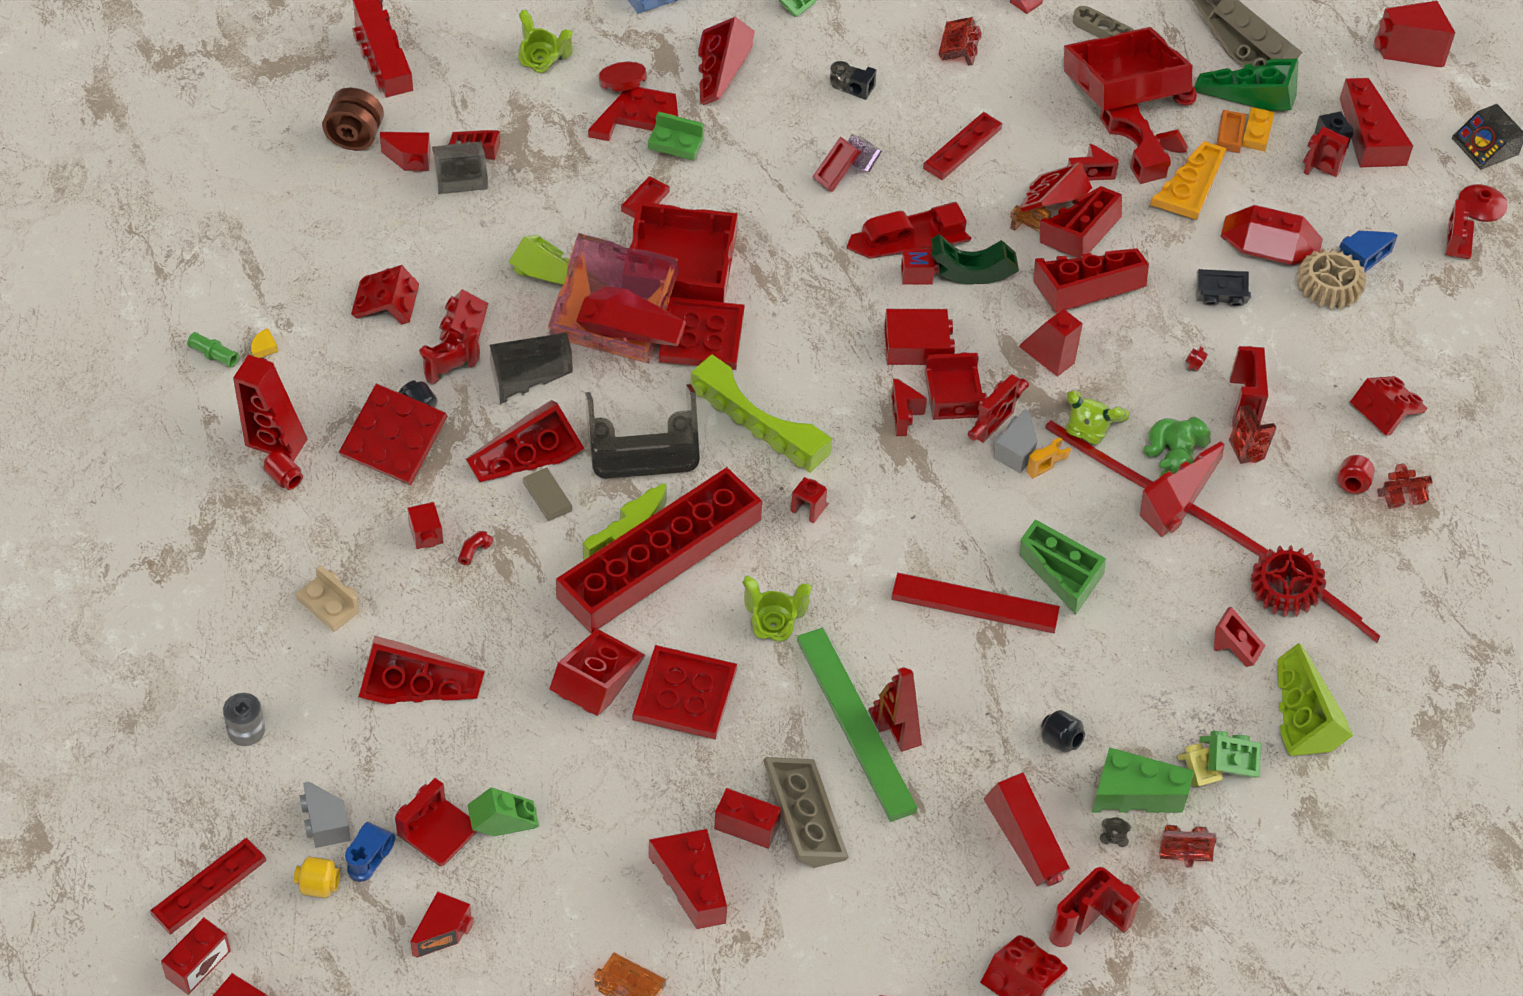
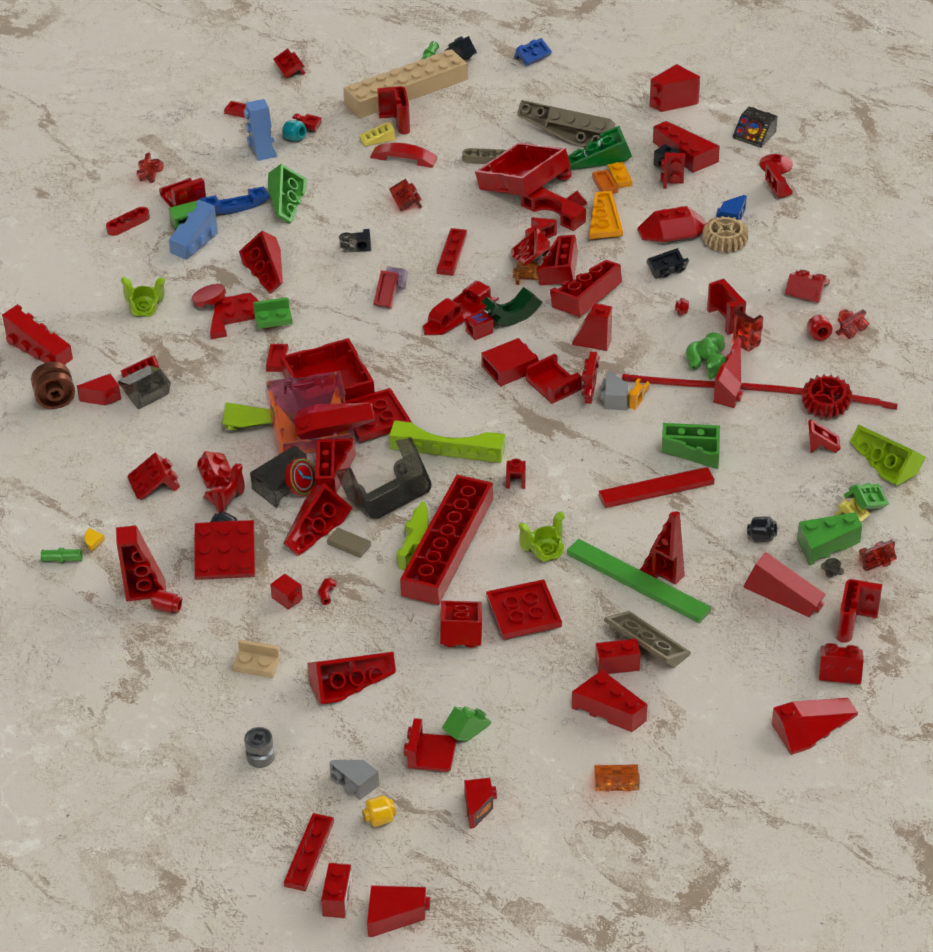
camera: 25 degrees left, 10 degrees down
(368, 851) = (398, 783): blue piece -> none
(547, 378) = (300, 476): none -> tile
(602, 372) = (331, 456): none -> red wedge
(905, 404) = (531, 401): red slope -> none
(1098, 414) = (641, 357): lime hair -> none

